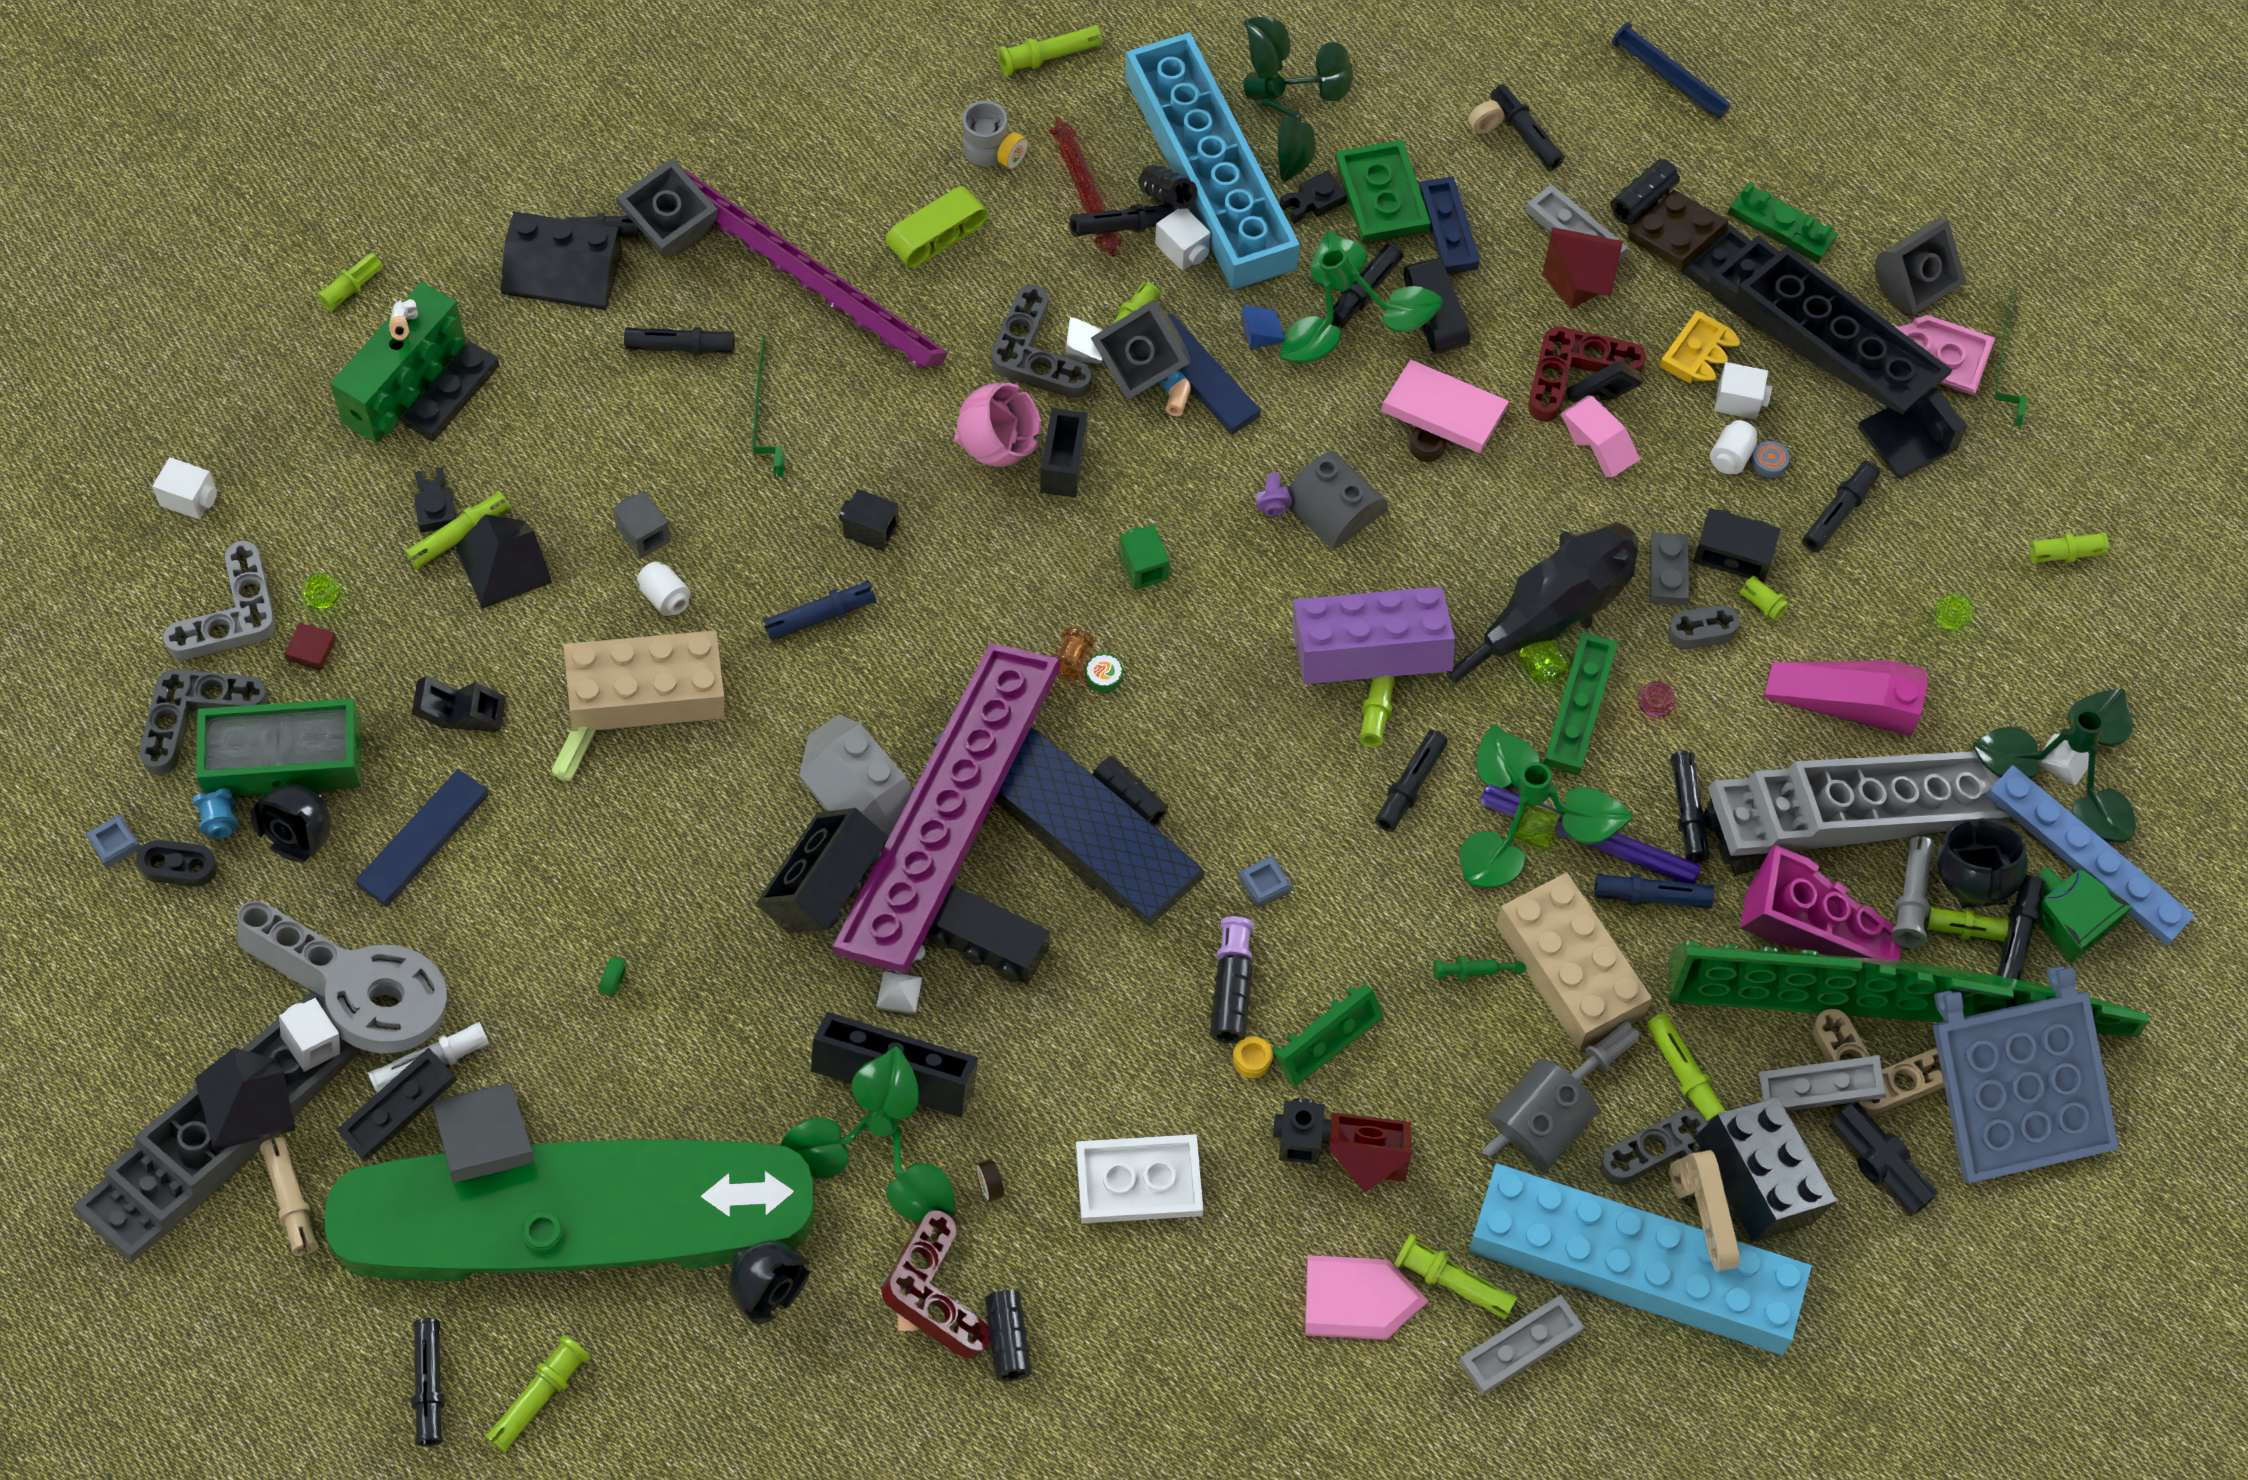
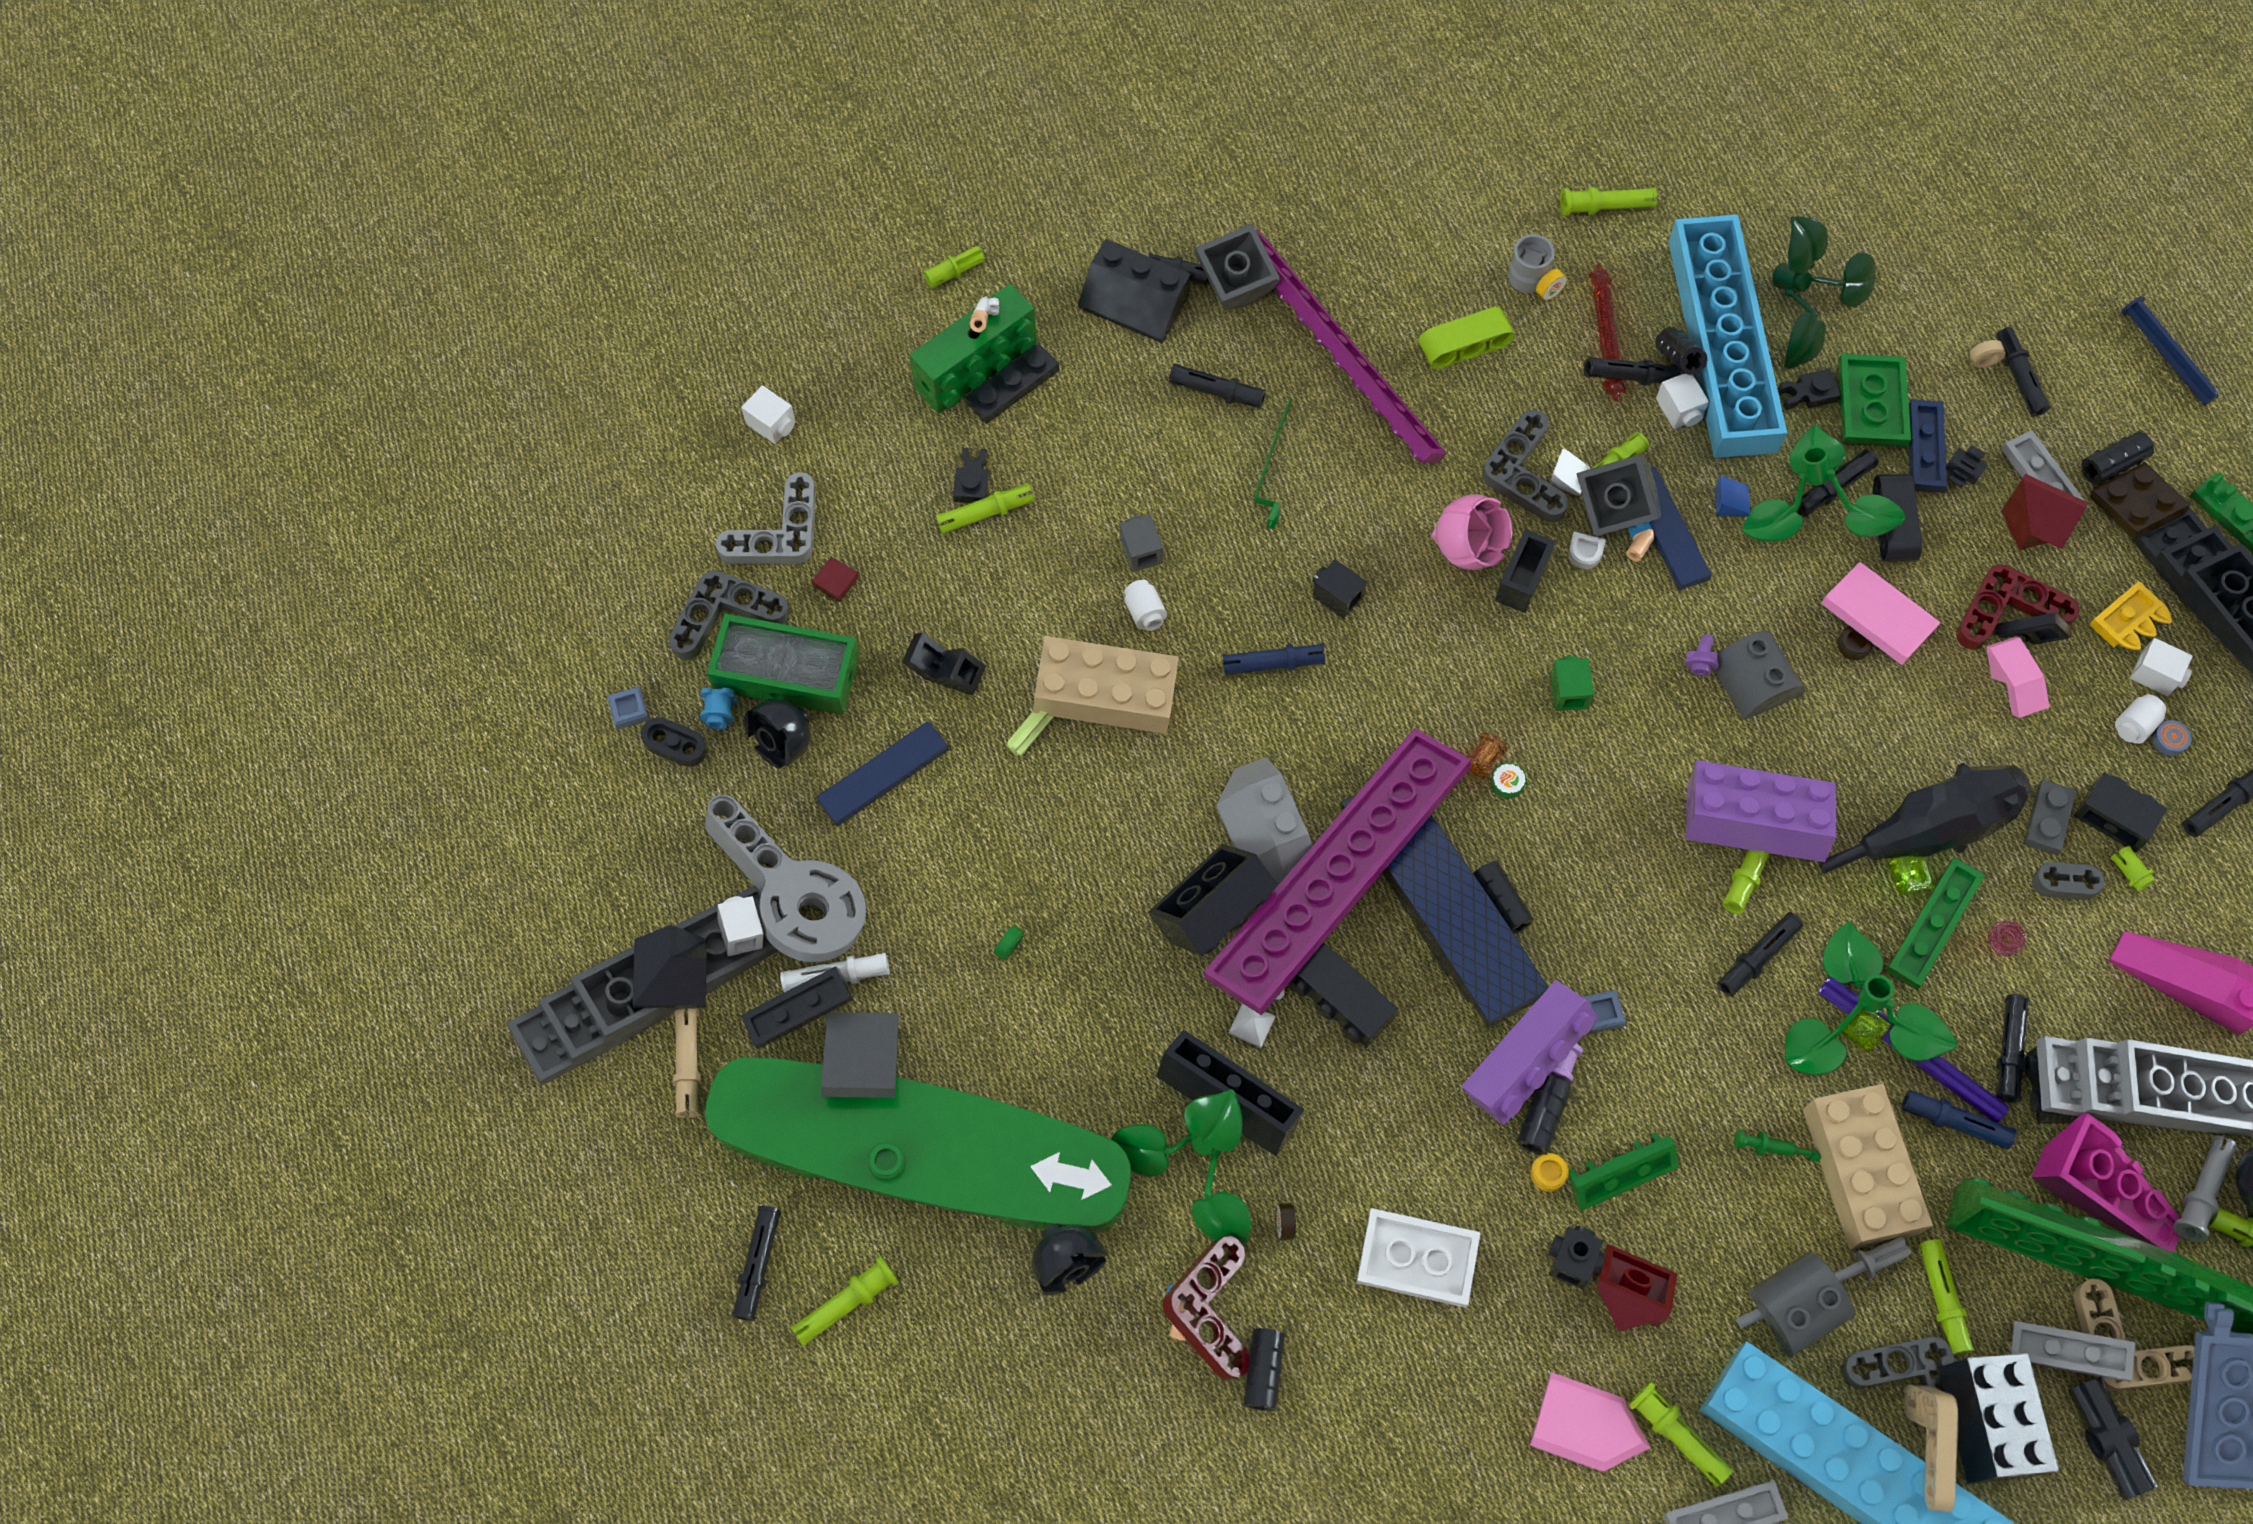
camera: 20 degrees right, 5 degrees up
(316, 583) = (853, 525): clear neon green plate -> none
(502, 559) = (1015, 544): black slope -> none
(1122, 418) = (1585, 550): none -> white tile
(1199, 938) = (1530, 1052): none -> medium lavender brick
(1494, 236) = (1966, 466): none -> black gear

